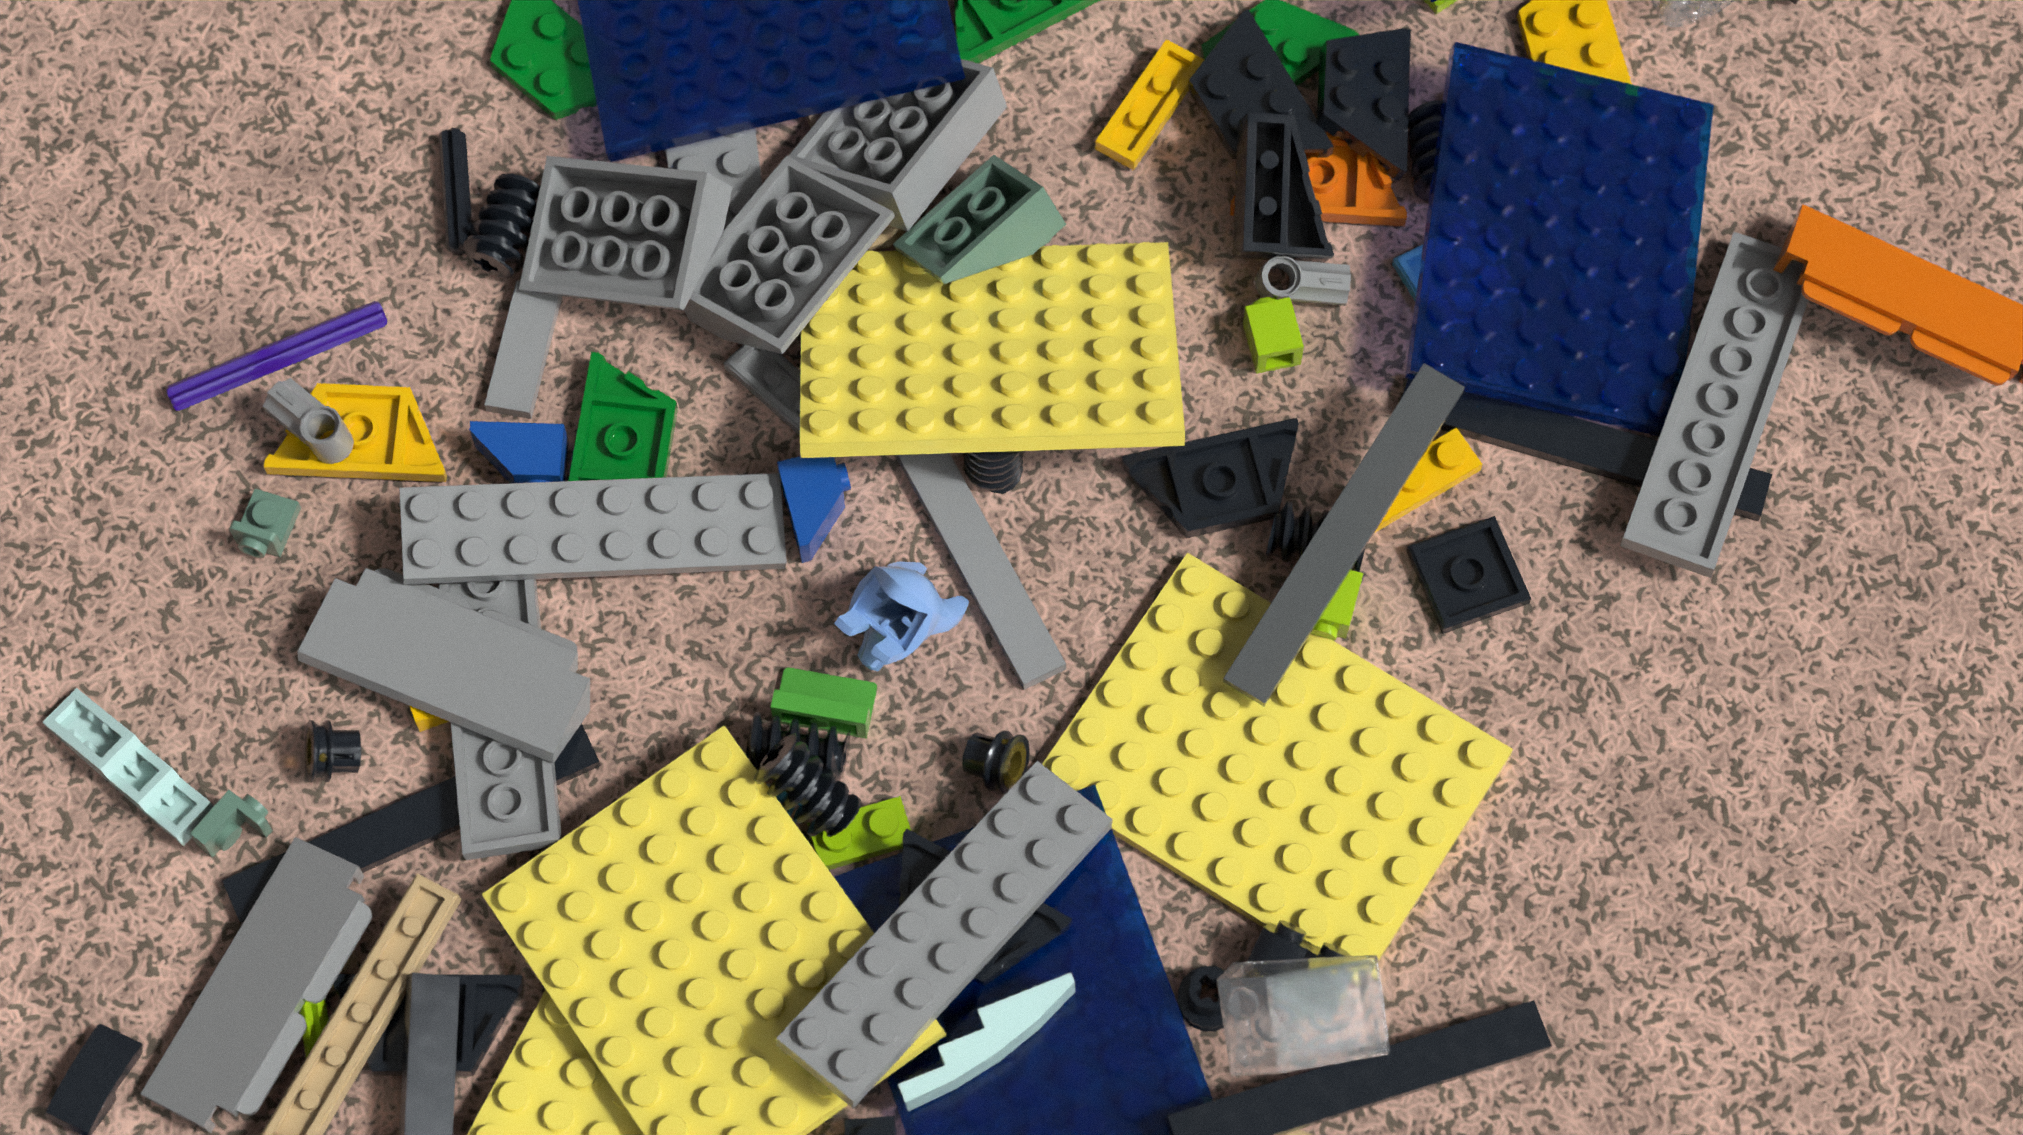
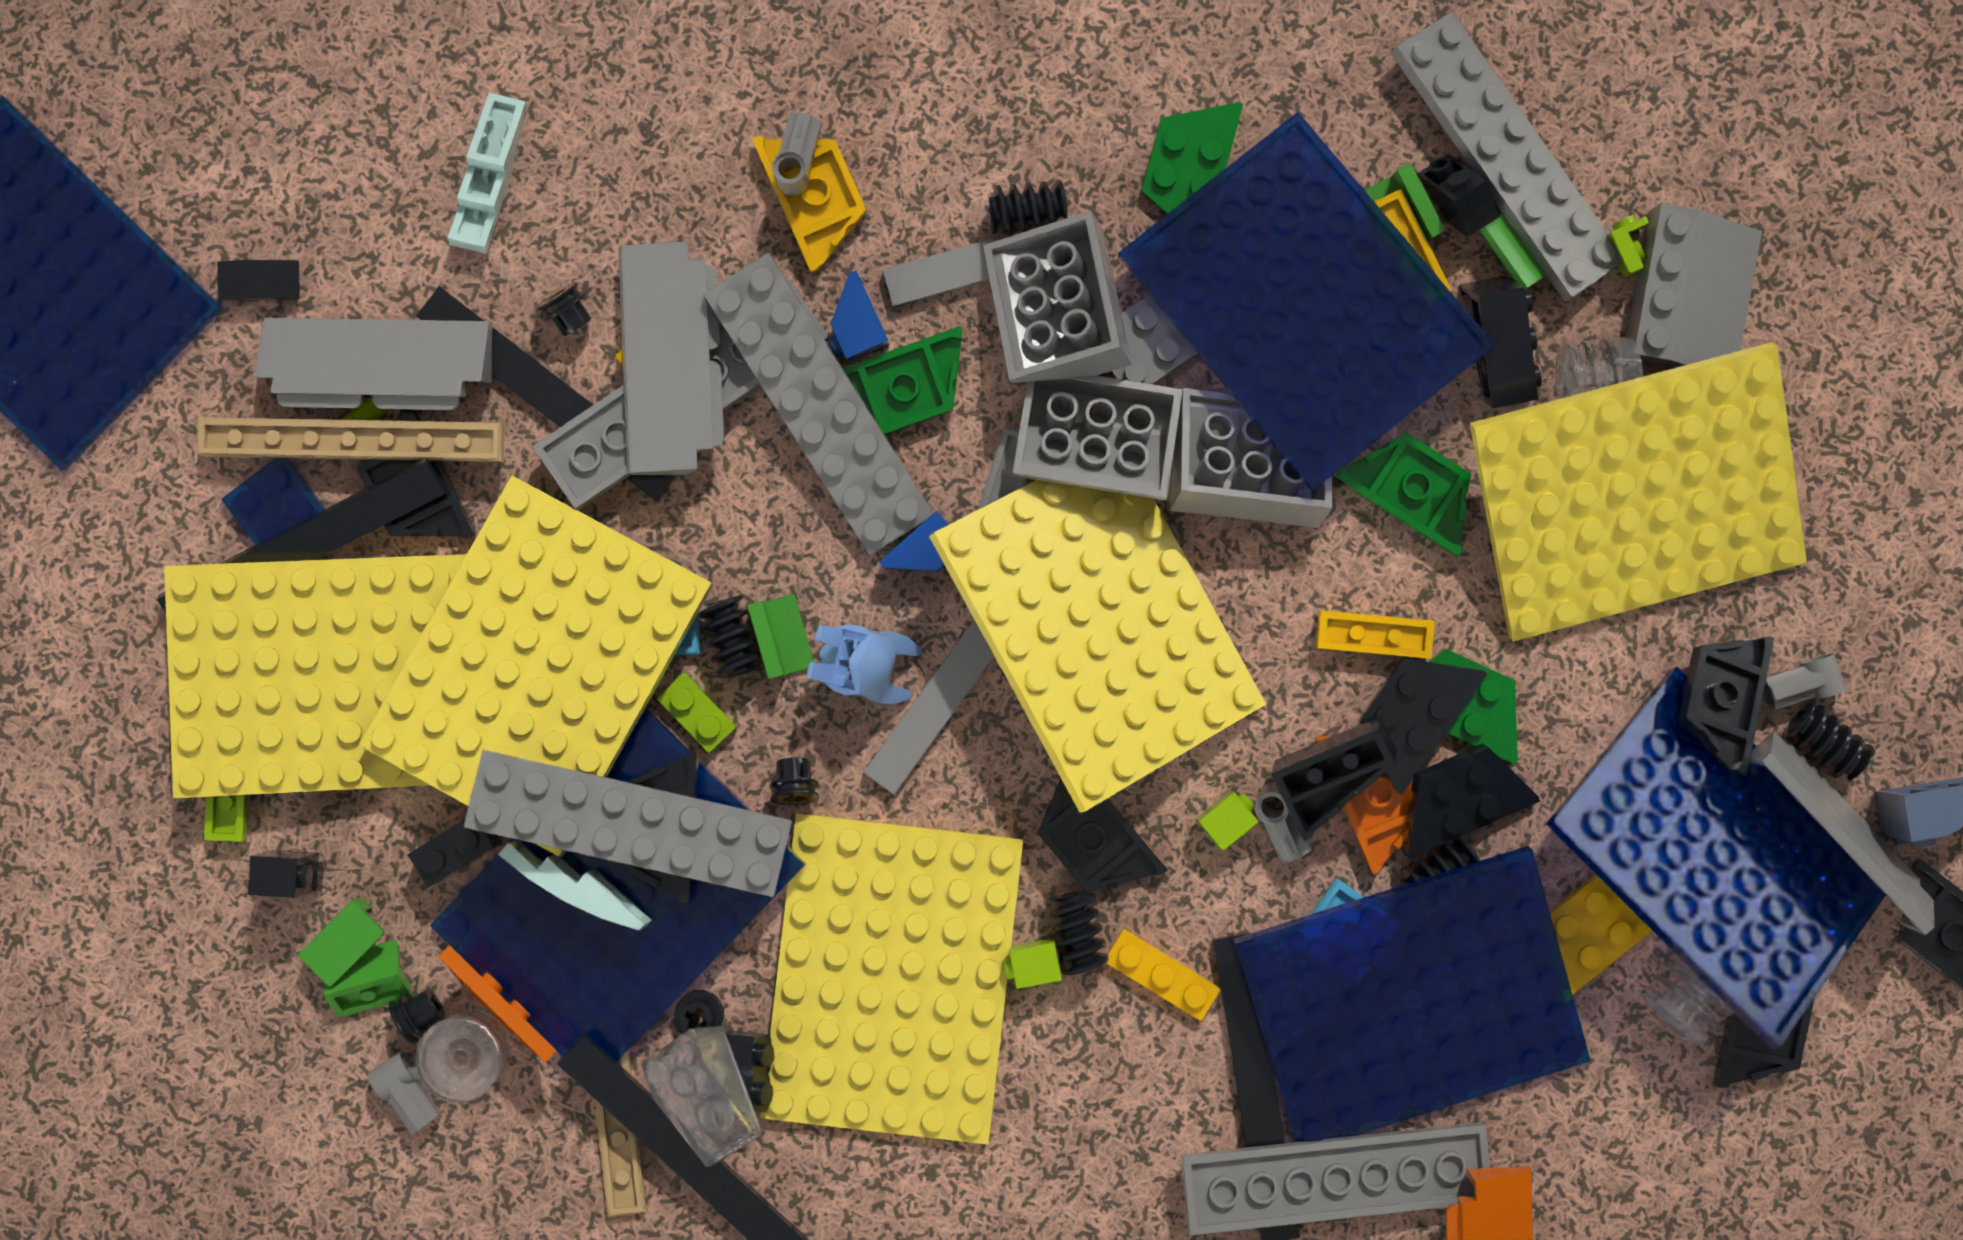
camera: 60 degrees right, 20 degrees up
(222, 823) = (474, 264): sand green bracket -> none
(265, 524) = (712, 163): sand green bracket -> none
(276, 355) = (846, 96): dark purple axle -> none
(455, 189) = (1042, 152): black axle -> none
(808, 786) = (694, 666): black piece -> none
(982, 224) = (1197, 563): sand green slope -> none
(1343, 535) = (1082, 956): dark grey tile -> none
(1468, 574) = (1110, 1049): black tile -> none

